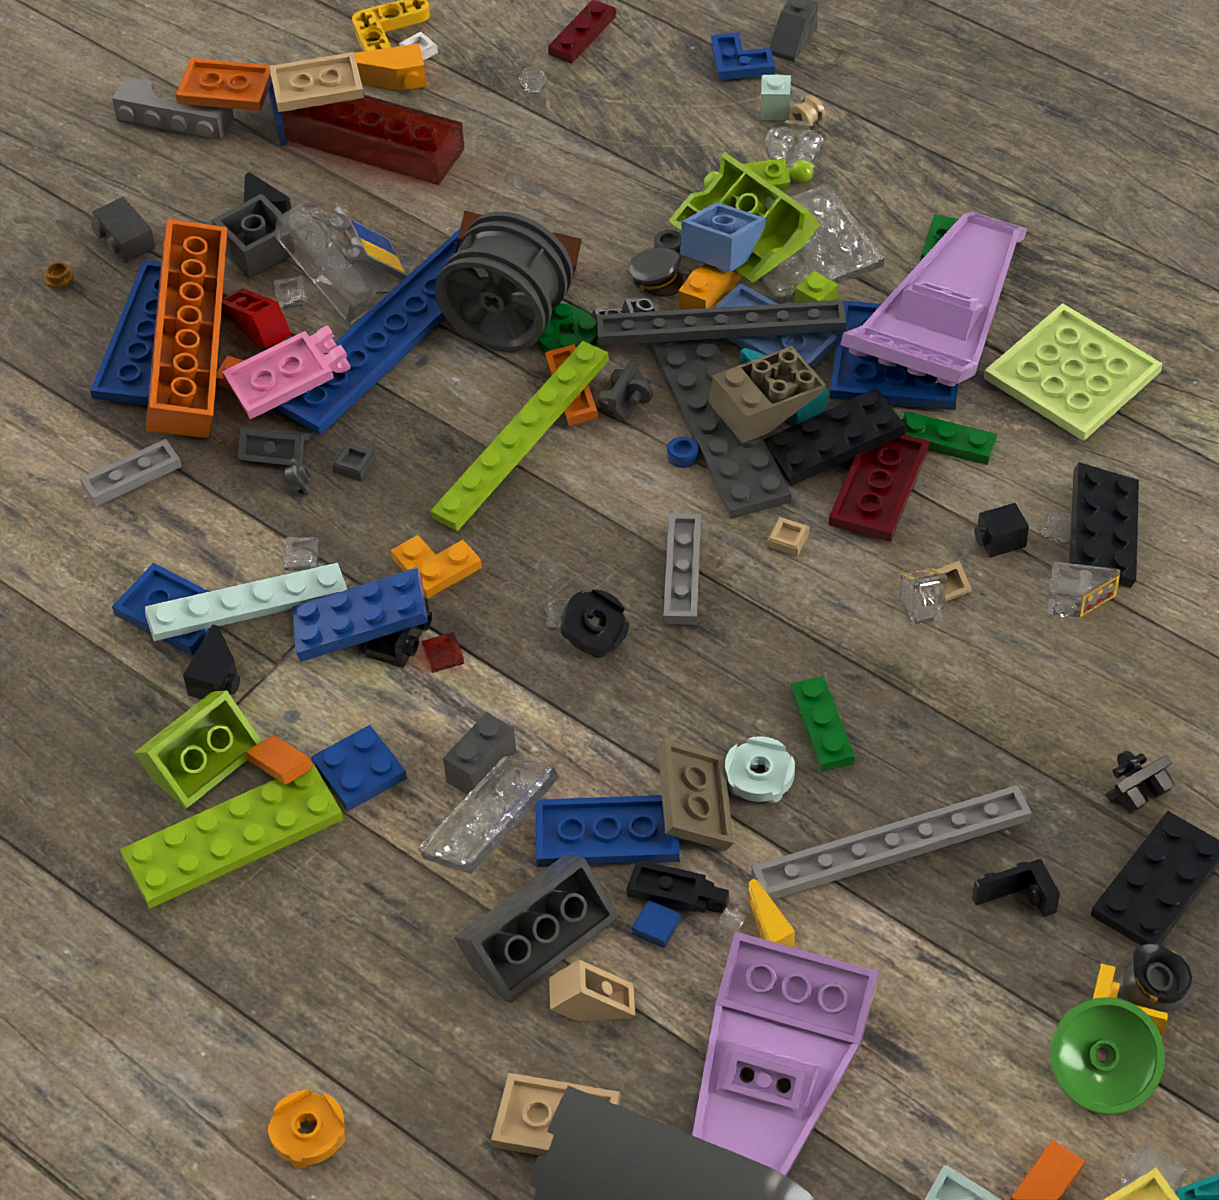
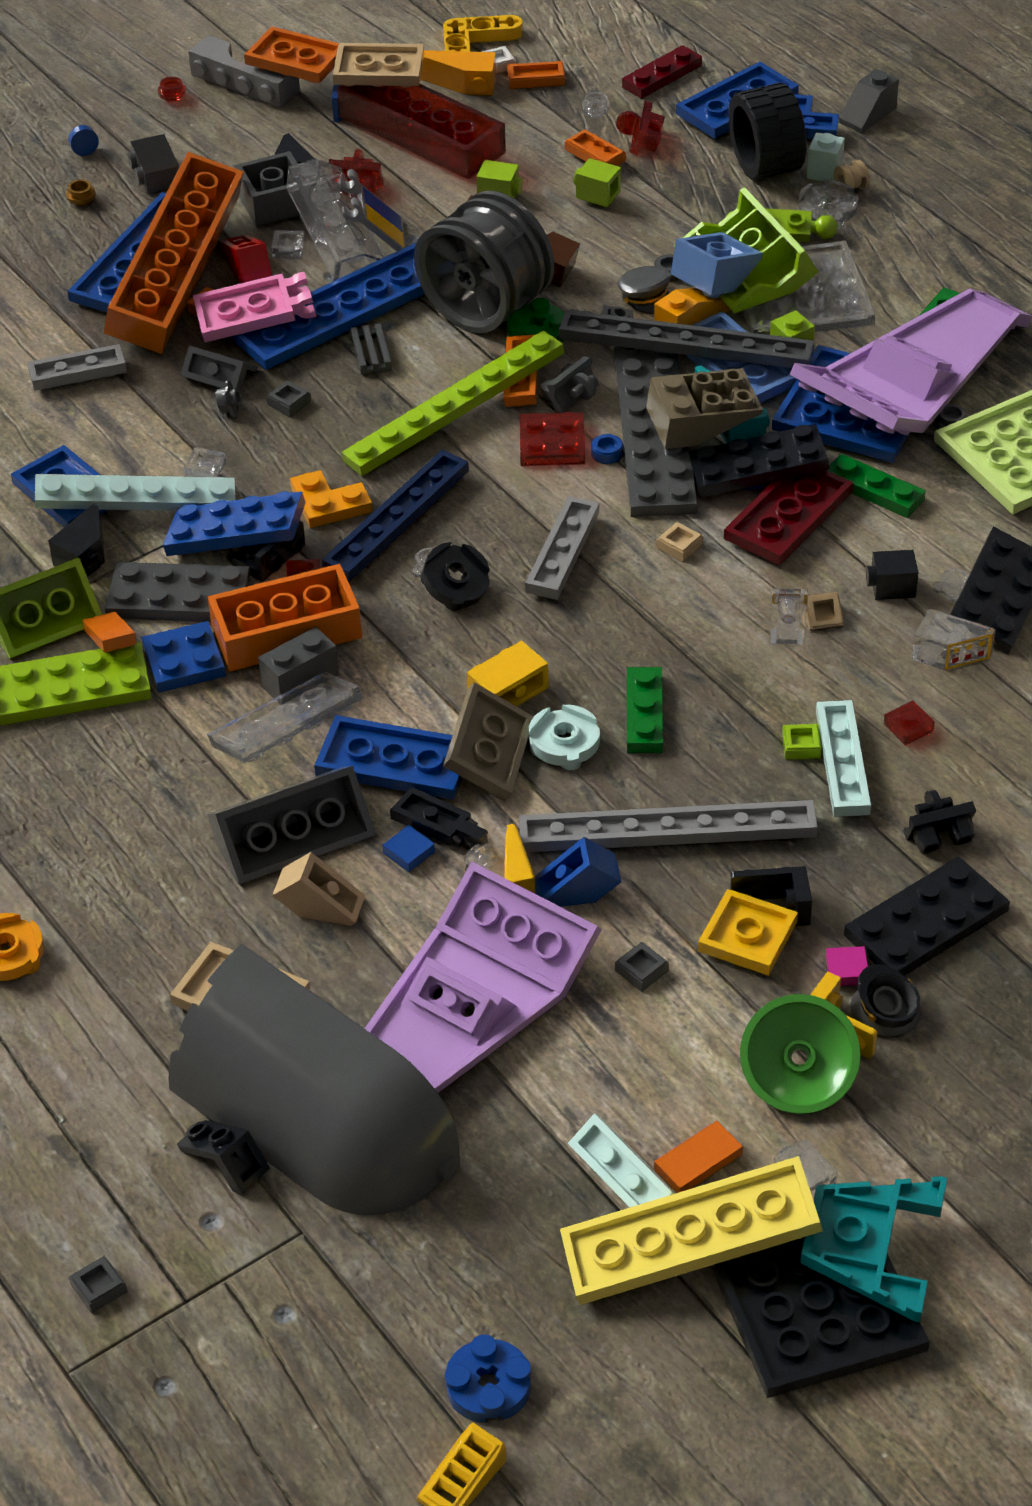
camera: 15 degrees right, 5 degrees down
(39, 216) = (83, 140): none -> blue tile
(106, 141) = (171, 89): none -> clear red plate
(326, 698) = (170, 590): none -> dark grey plate
(331, 197) = (368, 171): none -> clear red hips
(406, 374) = (368, 334): none -> dark grey tile
(443, 704) = (275, 611): none -> orange brick
(461, 57) = (536, 74): none -> orange tile
(473, 184) = (500, 178): none -> lime brick
(509, 569) = (397, 514): none -> dark blue plate
(551, 131) = (588, 145): none -> orange plate
(569, 166) = (597, 182): none -> lime brick
(589, 98) = (643, 128): none -> clear red hips
(627, 452) = (552, 439): none -> clear red plate
(666, 49) = (710, 107): none -> blue plate
(686, 718) = (512, 674): none -> yellow brick
(718, 83) = (767, 131): none -> black tyre
(831, 917) = (579, 875): none -> blue slope
(920, 995) = (641, 966): none -> dark grey tile
(979, 723) = (801, 741): none -> lime tile
(992, 351) = (949, 415): none -> dark grey plate
(1007, 936) = (747, 932): none -> yellow plate
(1026, 733) = (843, 758): none -> light aqua plate
(1070, 681) = (909, 722): none -> clear red plate
(1108, 947) = (846, 963): none -> dark pink tile

